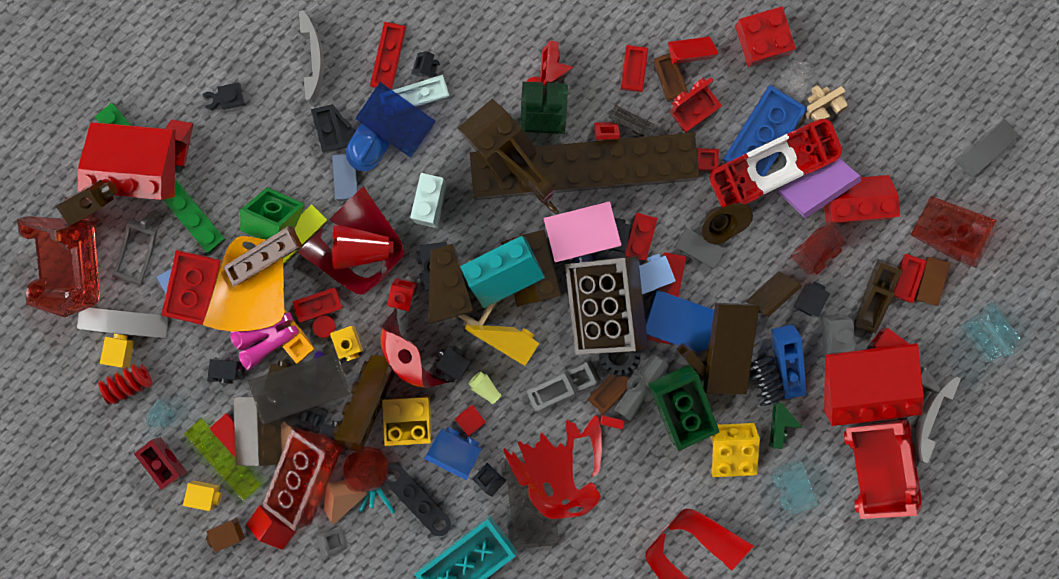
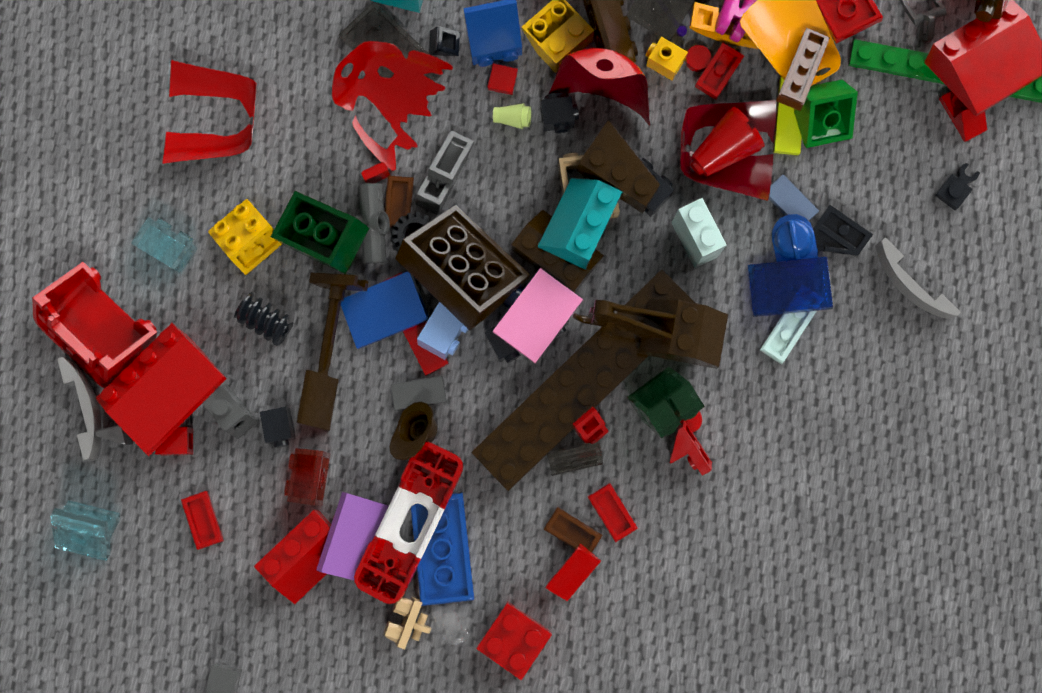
camera: 140 degrees right, 5 degrees down
(388, 54) = (846, 341): red tile -> none
(401, 294) = (654, 137): red bracket -> none
(423, 64) = (807, 356): black tile -> none
(509, 340) = (526, 168): yellow slope -> none
(641, 236) = (481, 360): red plate -> none
(695, 106) = (526, 519): red bracket -> none
(707, 159) = (476, 480): red tile -> none
(731, 348) = (318, 317): dark brown tile -> none
(780, 418) = (222, 295): dark green slope -> none
(789, 360) = (256, 354): blue slope -> none
(877, 295) = (219, 480): dark brown slope -> none
(932, 281) = (177, 535): reddish brown tile -> none
(955, 231) = (191, 598): clear red slope -> none

